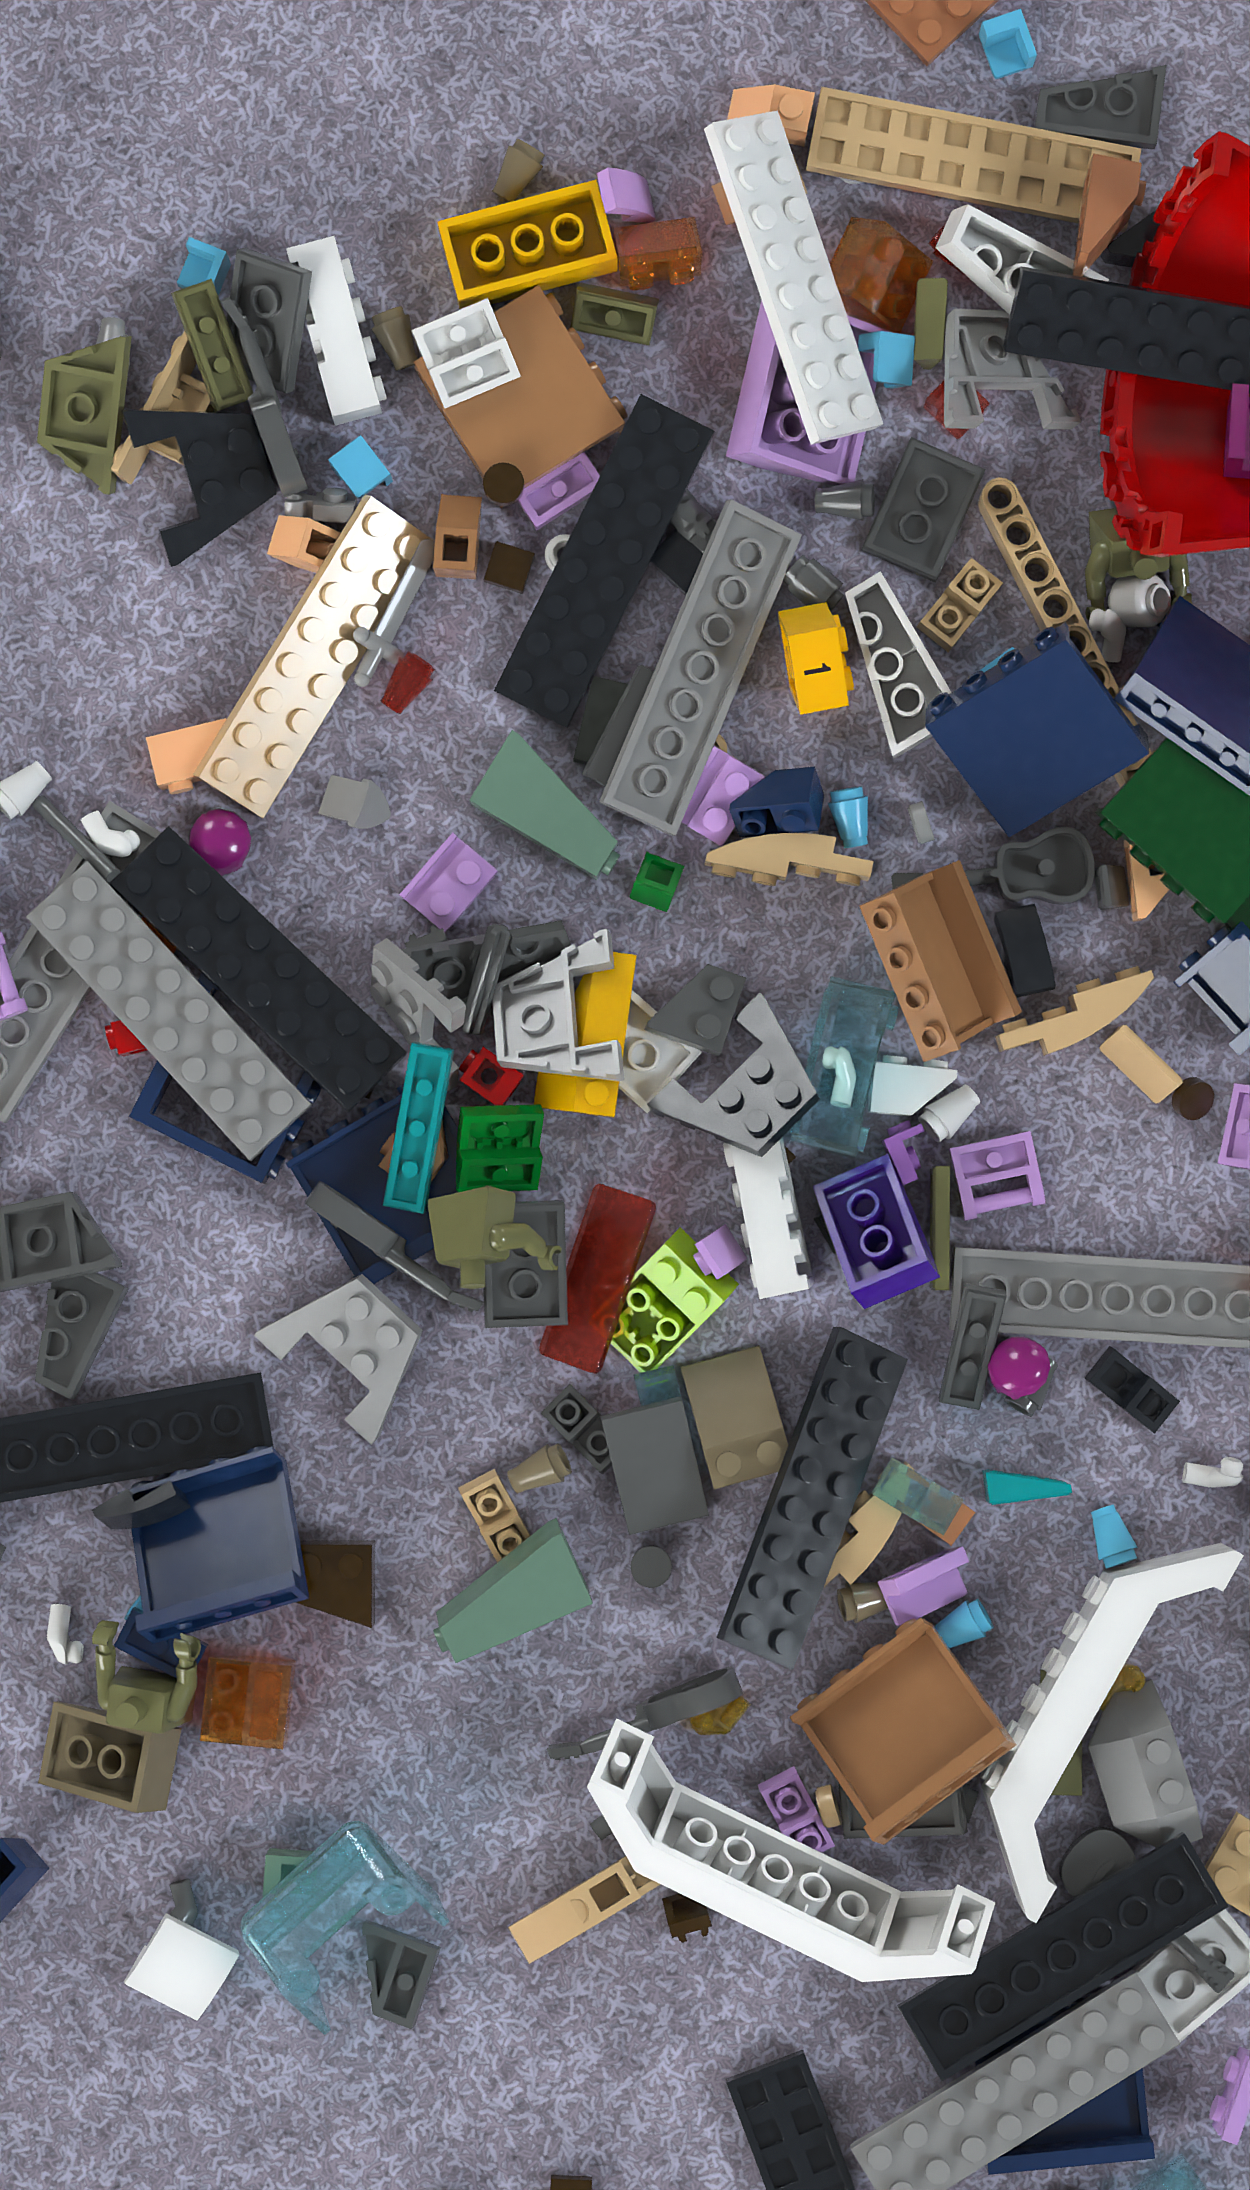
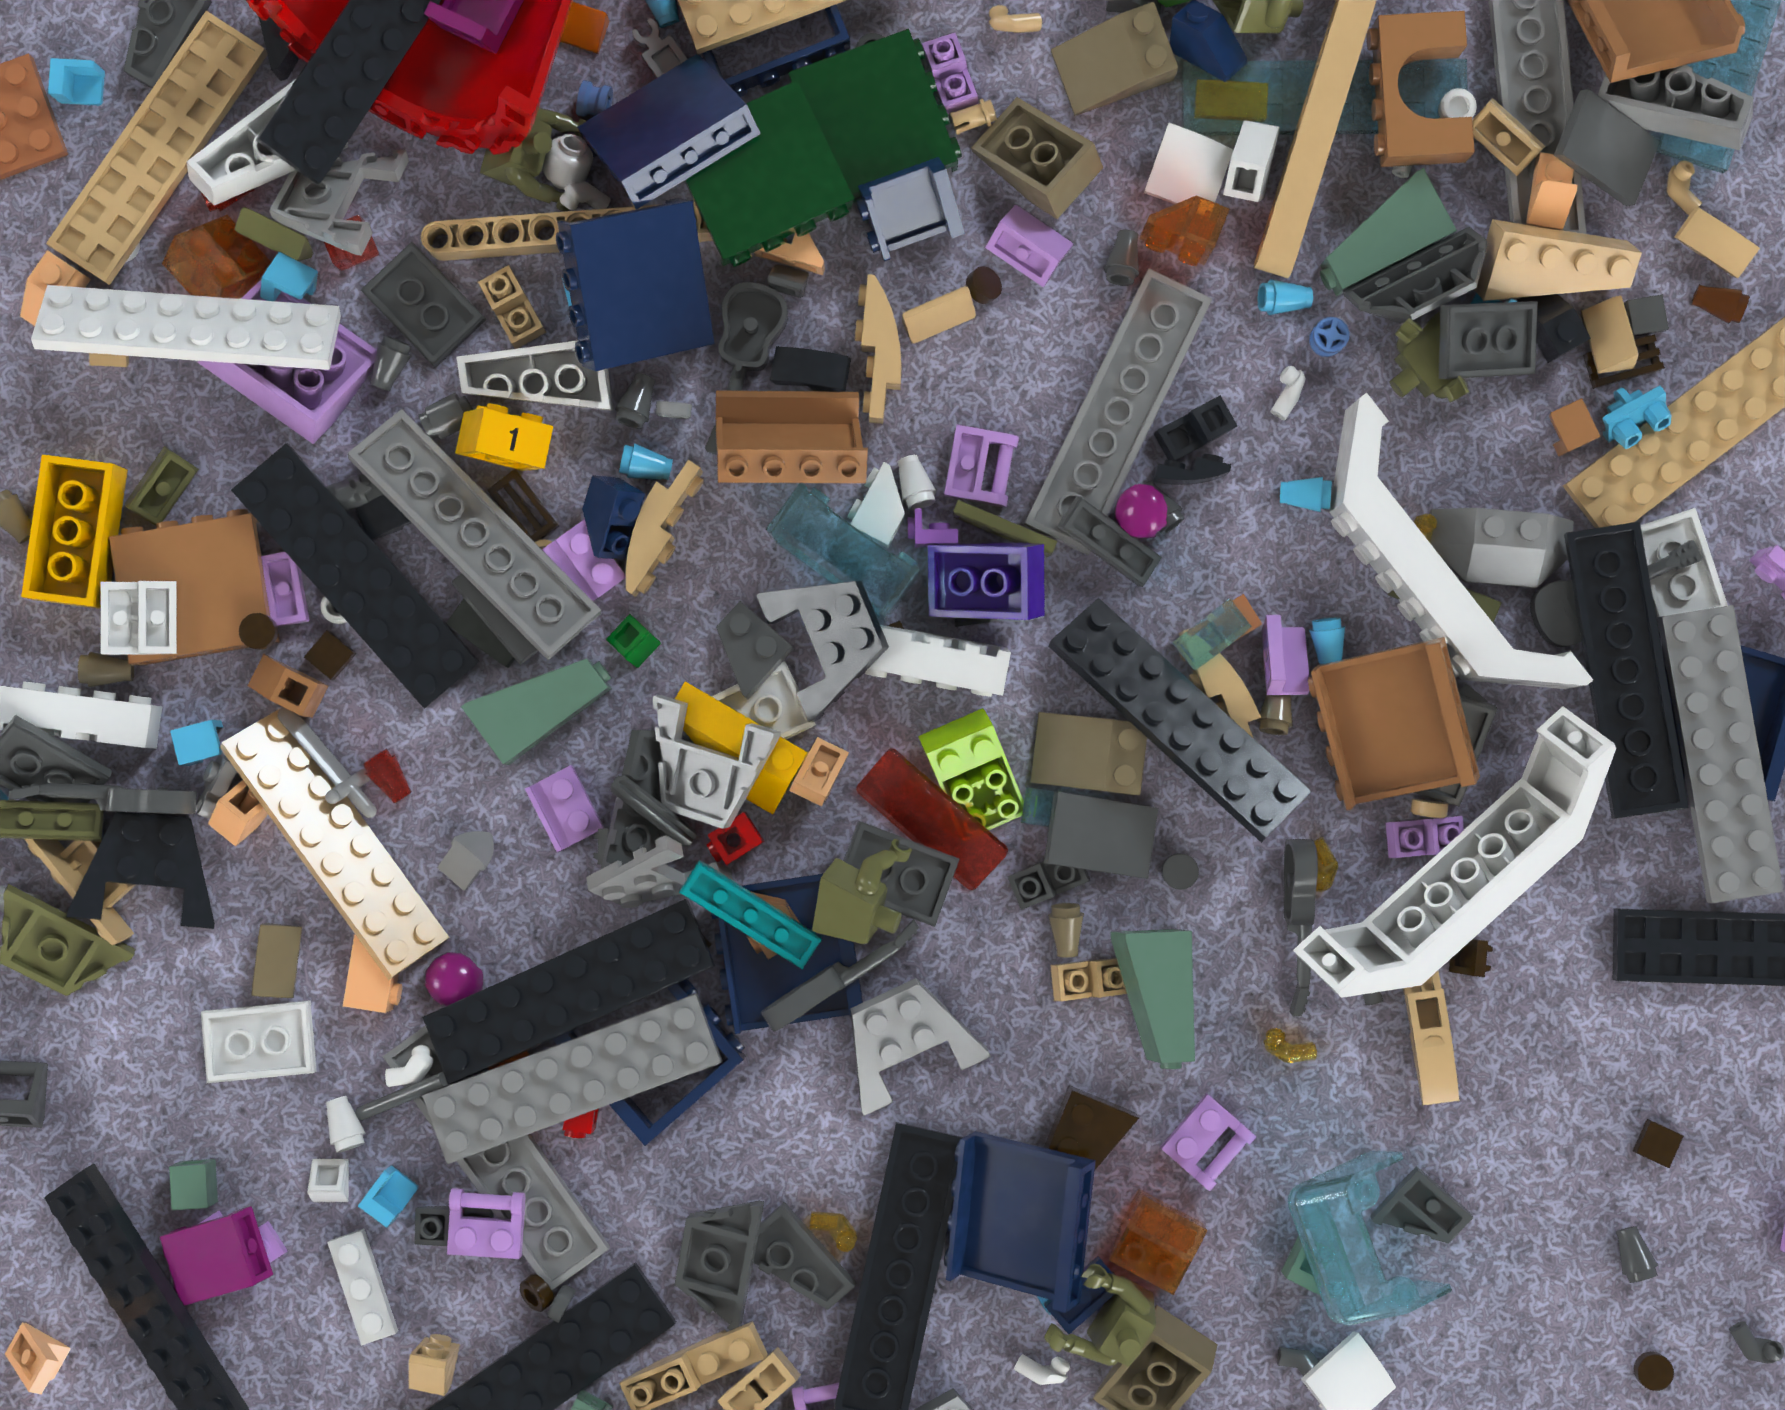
camera: 65 degrees left, 0 degrees up
(71, 663) = (258, 1041): none -> white tile
(125, 1355) = (837, 1226): none -> clear yellow arm
(130, 1512) = (965, 1275): black slope -> none
(163, 647) = (276, 960): none -> dark tan slope
(380, 1700) = (1199, 1133): none -> lavender plate
(499, 1147) = (794, 855): green slope -> none
(505, 1756) = (1288, 1053): none -> clear yellow arm
(599, 1137) = (819, 771): none -> light nougat slope
(626, 194) = (65, 435): lavender slope -> none
(658, 253) = (125, 430): clear orange slope -> none
(719, 1253) = (951, 713): lavender slope -> none
(732, 736) = (504, 483): none -> dark brown tile
(845, 1075) = (850, 552): light aqua arm -> none
(911, 779) = (635, 404): none -> dark grey cone
(1012, 1487) = (1235, 555): teal slope -> none
(1090, 1414) = (1202, 470): none -> black slope
(1106, 206) = (233, 51): nougat slope -> none
(1218, 599) = (593, 99): none -> medium blue wheel

